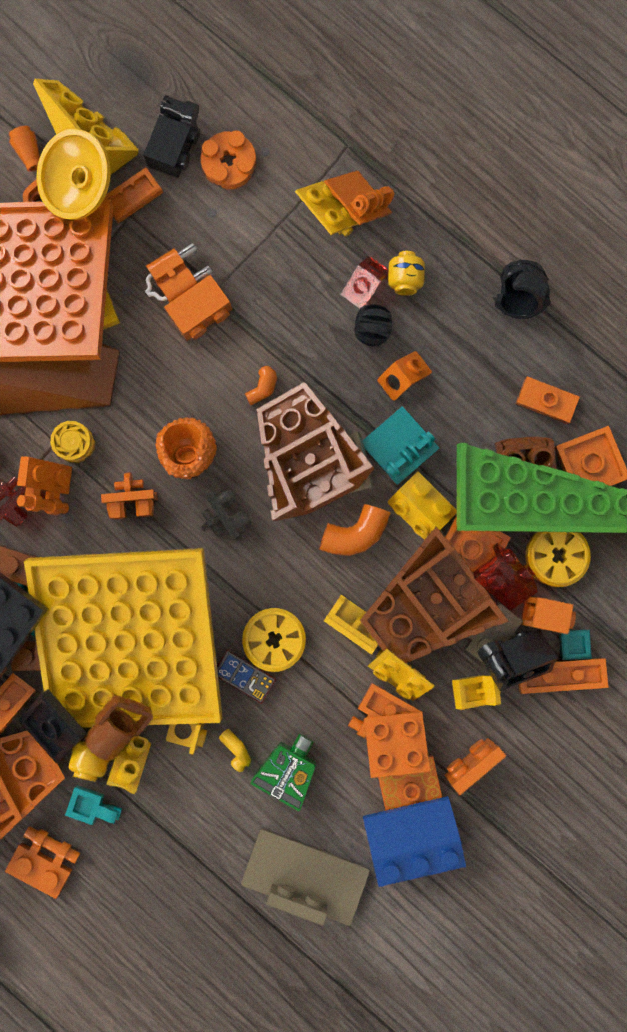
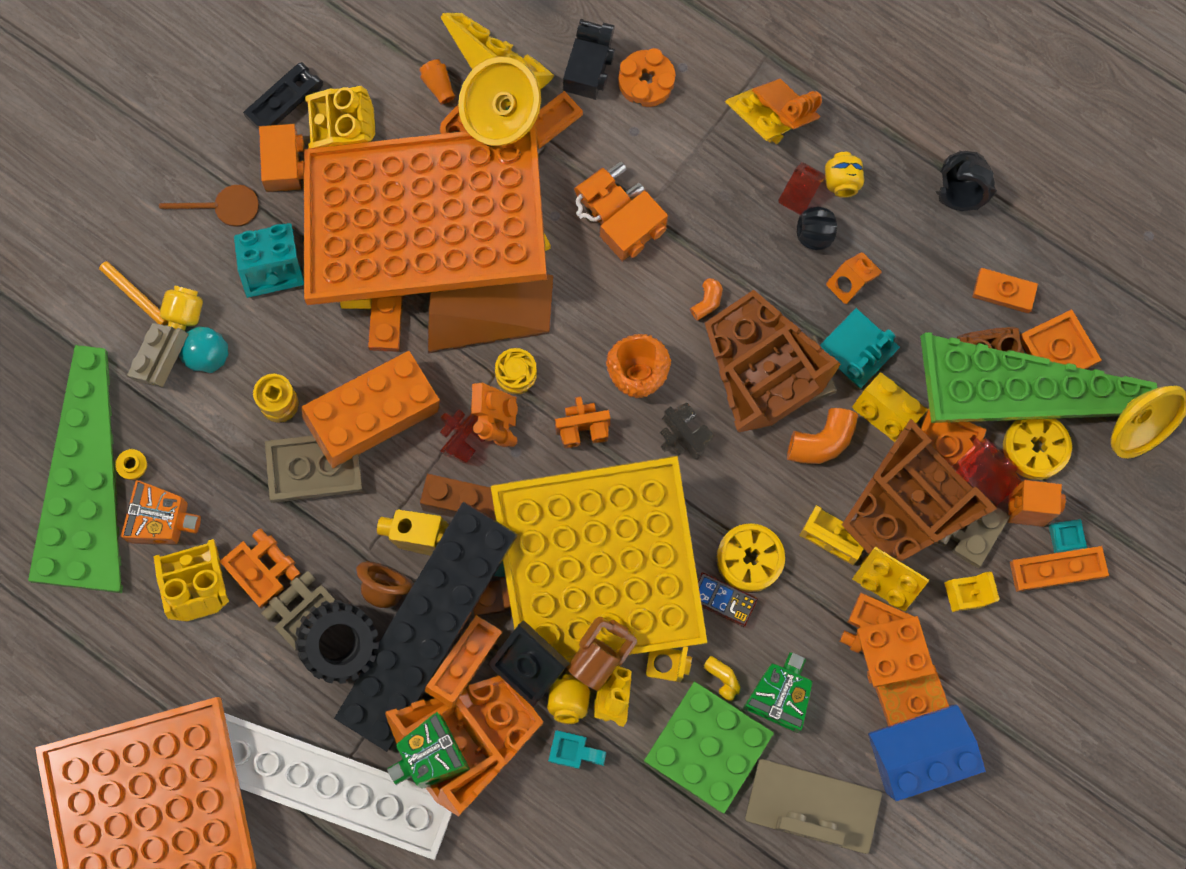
camera: 10 degrees left, 10 degrees down
(39, 869) = (523, 826): orange plate -> none
(215, 813) = (708, 747): none -> bright green plate
(476, 764) = (985, 657): orange plate -> none
(518, 659) = (1011, 550): black hinge -> none

